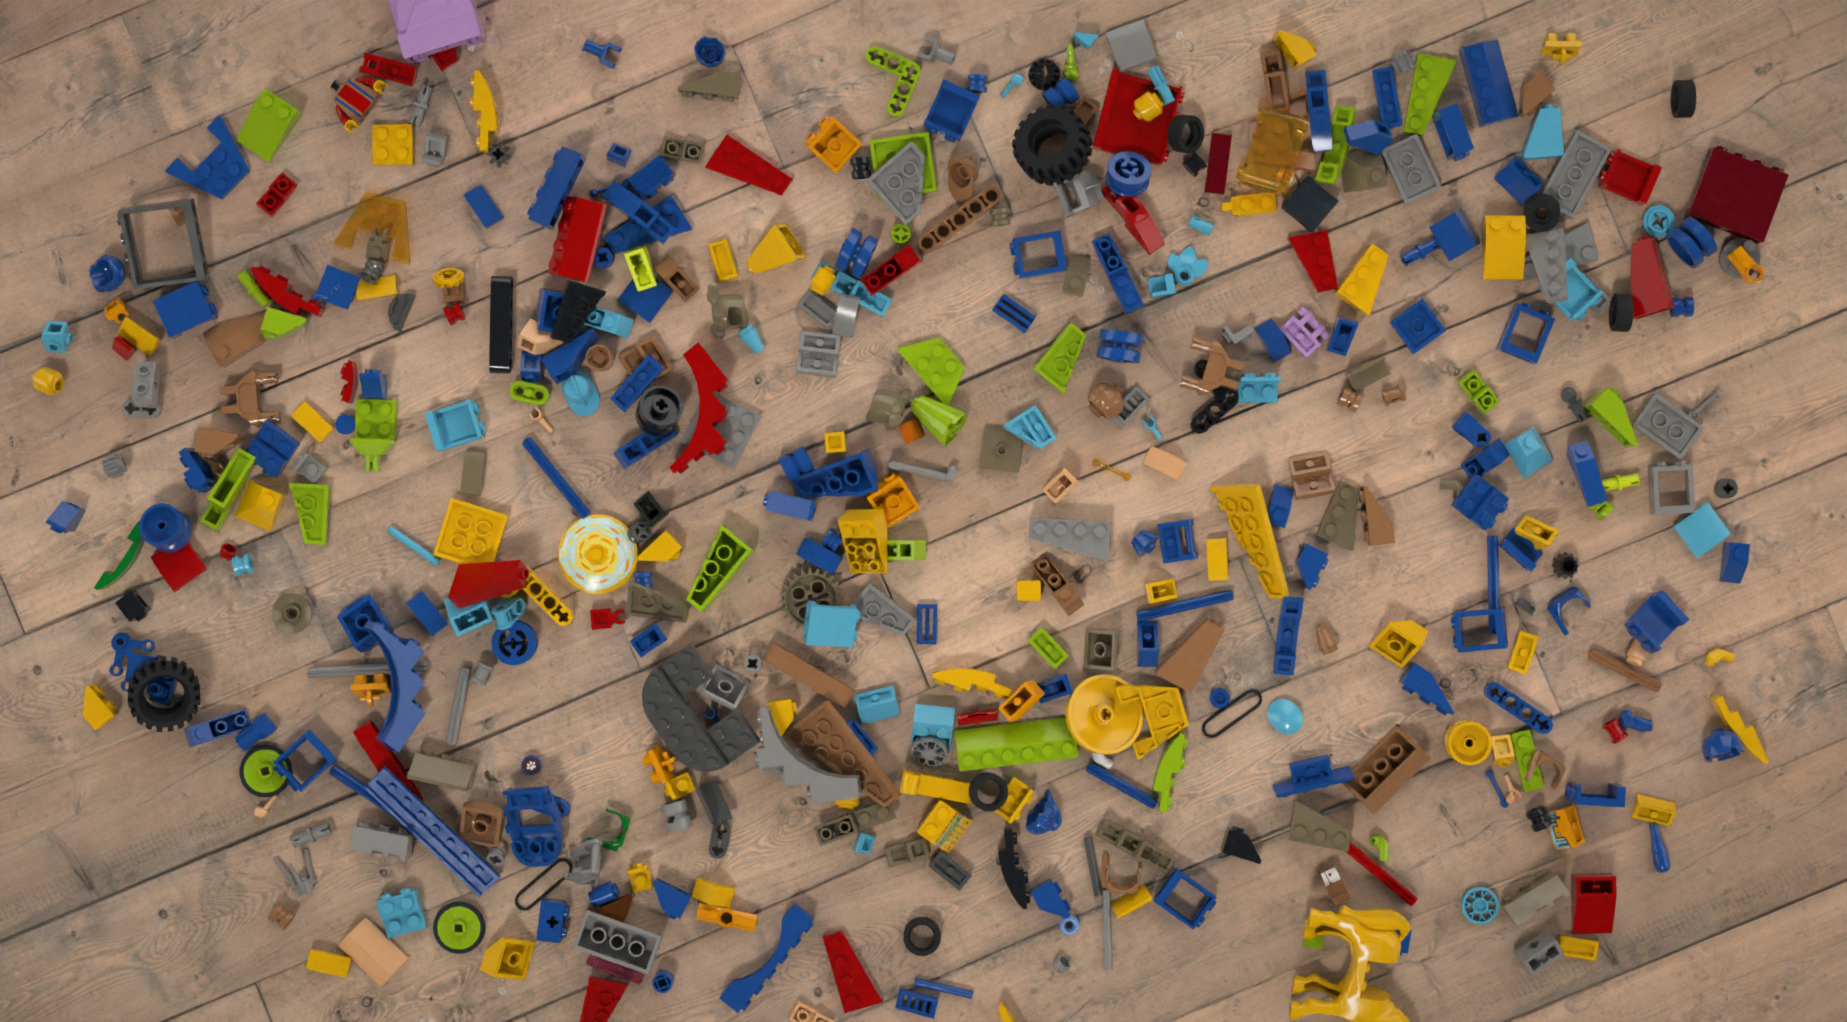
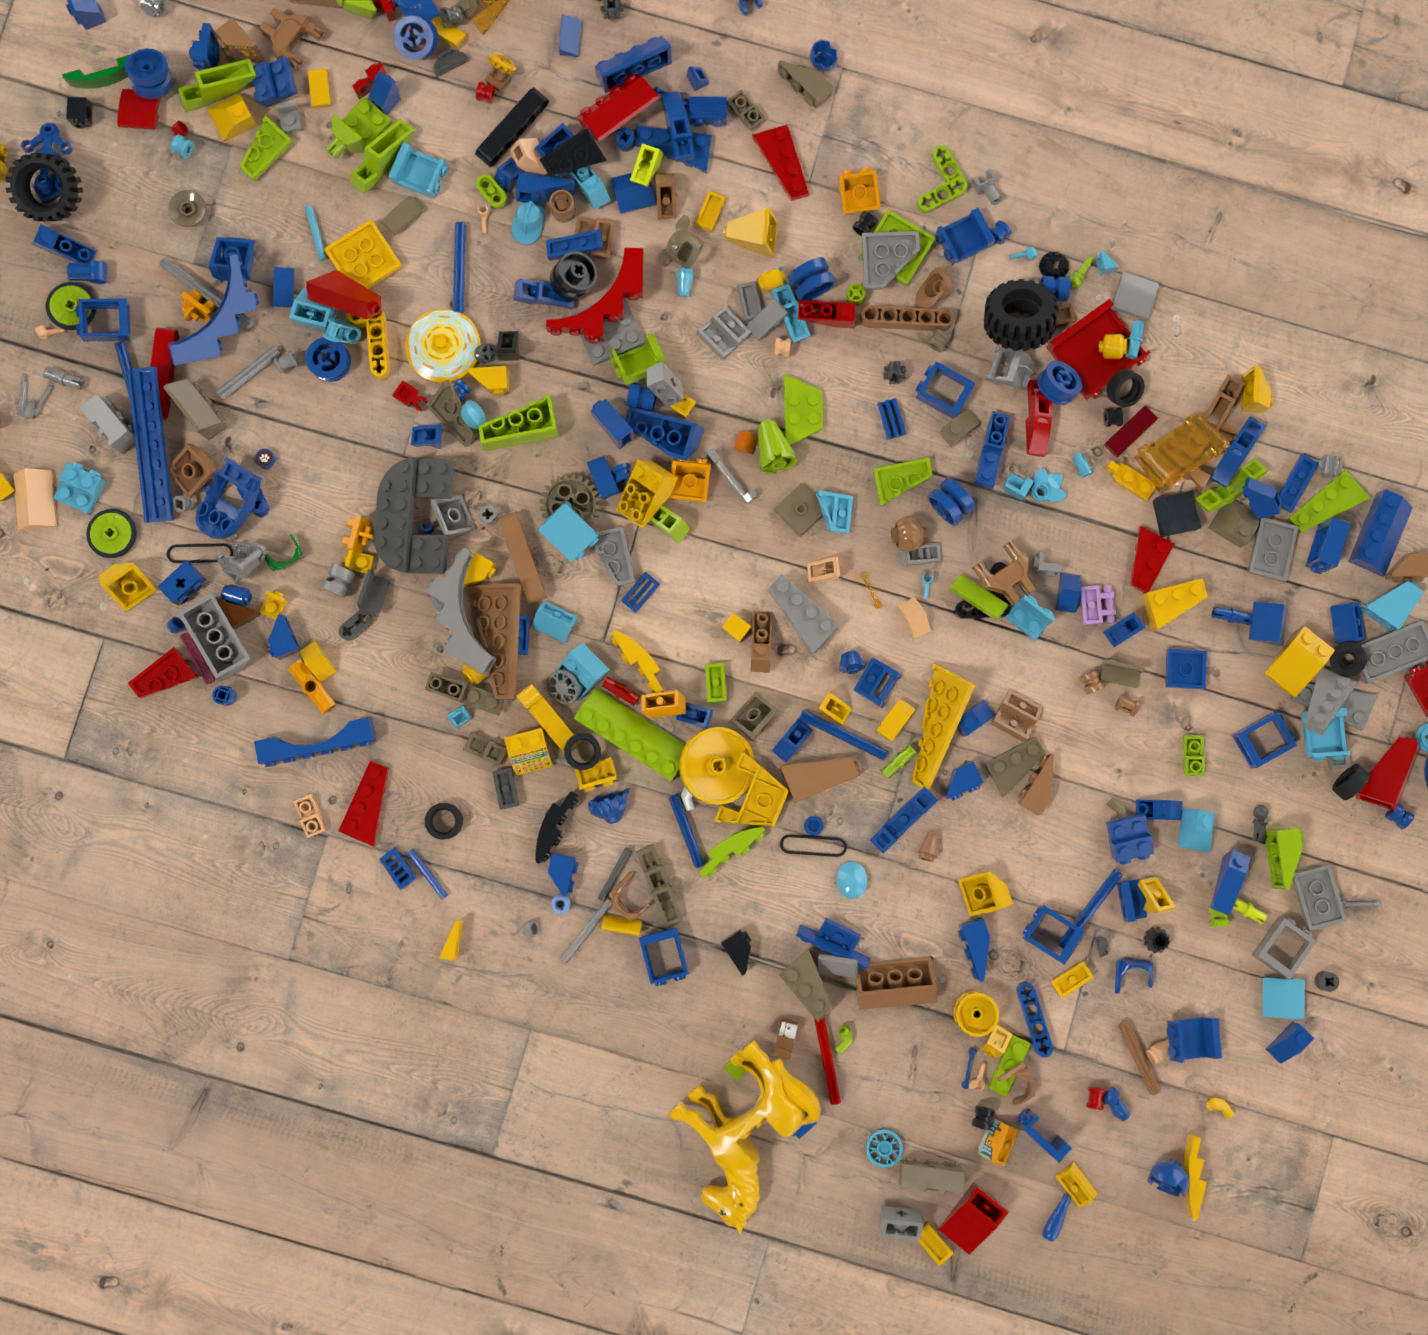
camera: 40 degrees right, 5 degrees down
(345, 424) = (341, 108): blue tile -> none
(355, 325) = (426, 35): none -> wheel
(414, 438) = (380, 156): none -> lime slope
(575, 954) = (175, 621): none -> blue hinge
(673, 592) = (473, 414): none -> medium azure hat
(771, 437) = (633, 364): none -> lime panel
(808, 440) = (664, 384): none -> light grey brick
(876, 327) = (782, 347): none -> light nougat wheel
(888, 407) = (742, 409): dark tan piece -> none
(986, 274) = (894, 372): none -> dark grey gear
(1204, 405) = (978, 597): none -> lime tile
(1246, 591) = (898, 761): none -> lime pin
(1329, 794) = (838, 966): none -> light grey tile
(1468, 427) = (1165, 777): blue piece -> none

